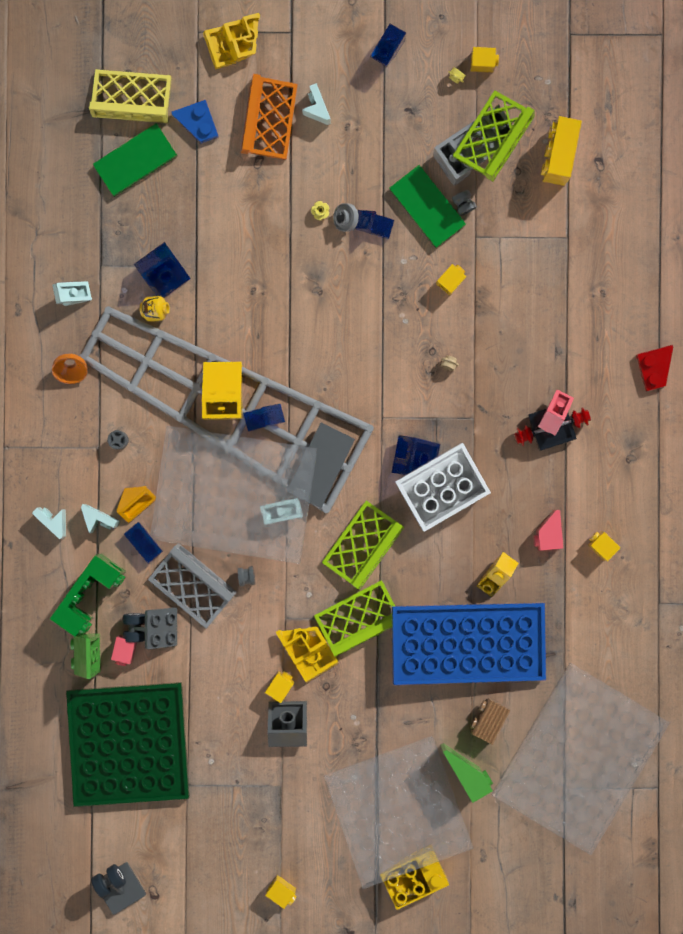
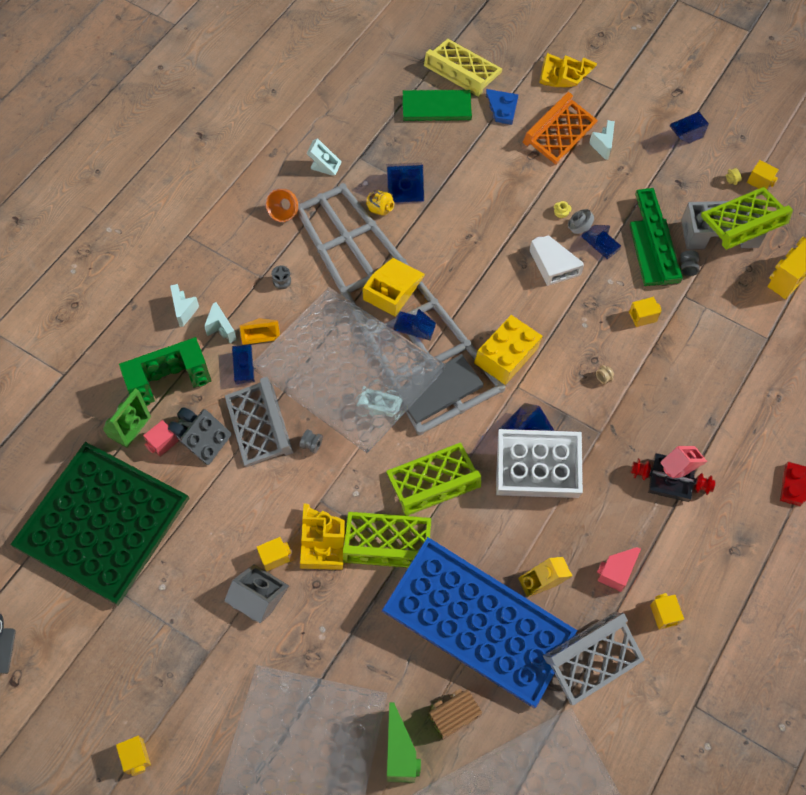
camera: 30 degrees right, 25 degrees down
(344, 274) = (554, 260): none -> white slope
(357, 393) = (508, 349): none -> yellow brick
(421, 189) = (658, 236): none -> green tile
(557, 610) = (587, 639): none -> light grey fence

